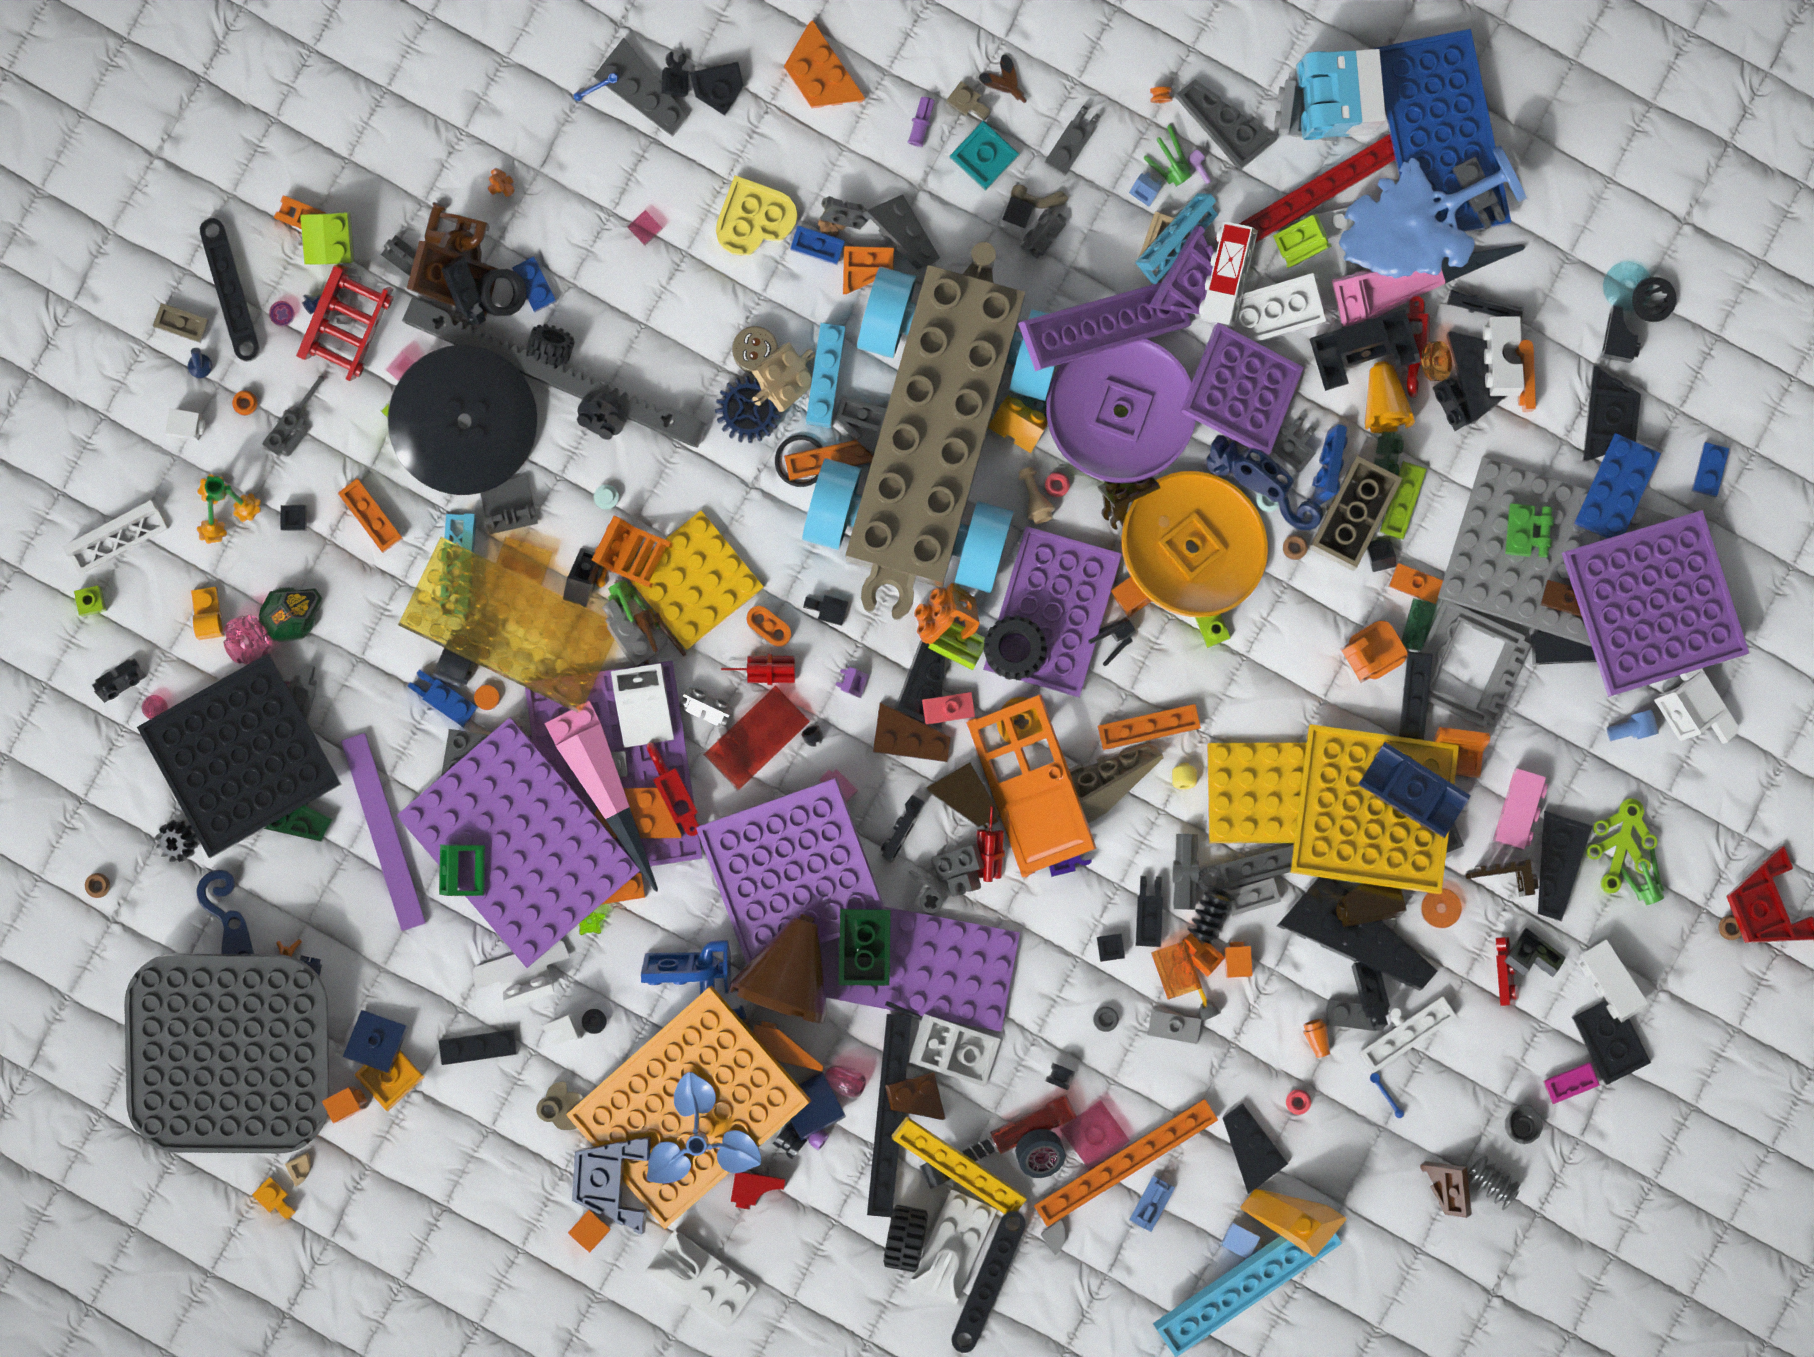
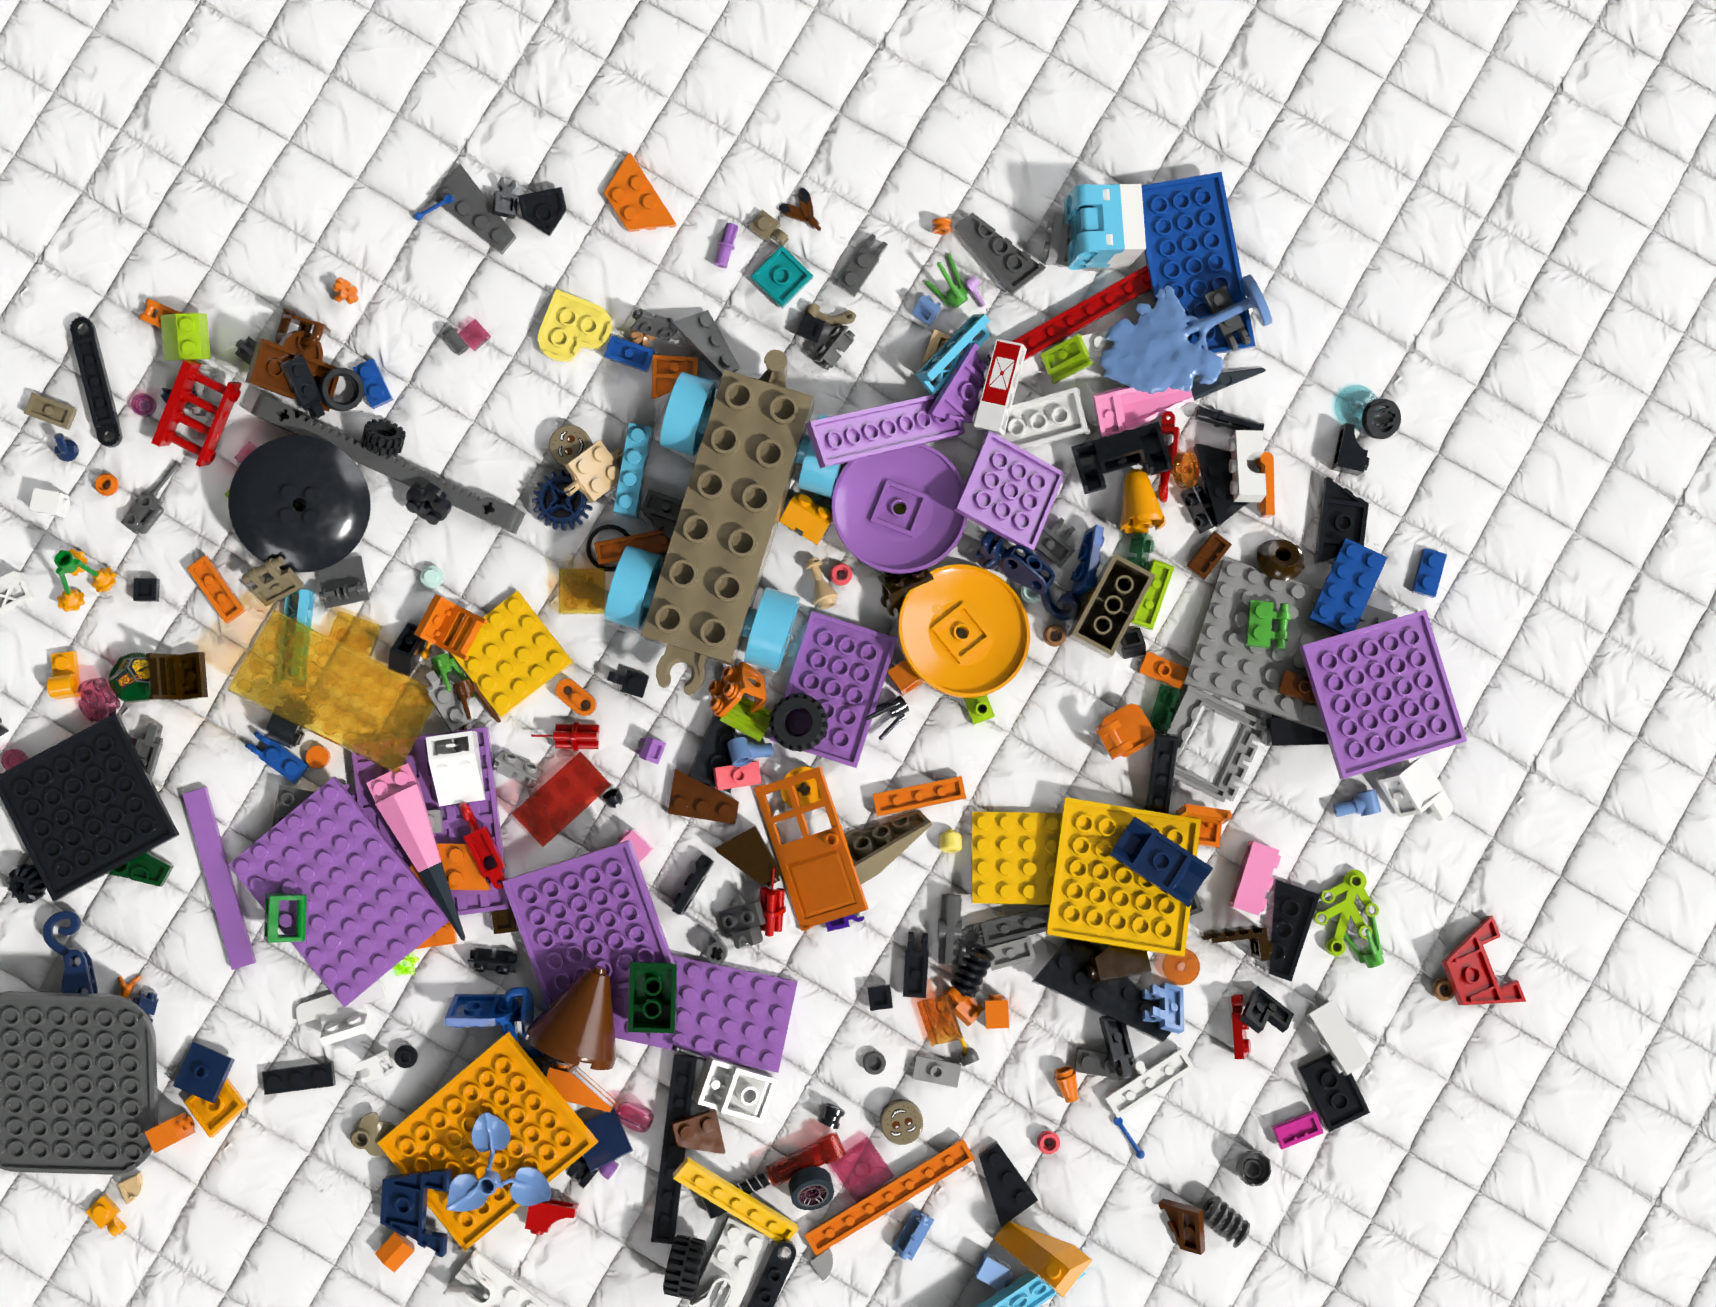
camera: 10 degrees left, 0 degrees up
(335, 611) = (177, 676): none -> dark brown plate
(437, 511) = (275, 587): none -> dark tan plate
(623, 234) = (454, 339): none -> dark grey pin
(673, 916) = (501, 964): none -> black hinge
(697, 872) = (504, 921): none -> dark brown plate
(772, 509) = (582, 591): none -> clear yellow plate
(957, 682) = (744, 752): none -> medium blue pin
(1137, 1081) = (901, 1121): none -> dark tan head
(1429, 953) = (1170, 1009): none -> medium blue plate
(1464, 455) = (1208, 555): none -> reddish brown plate
(1543, 458) = (1280, 559): none -> dark brown piece

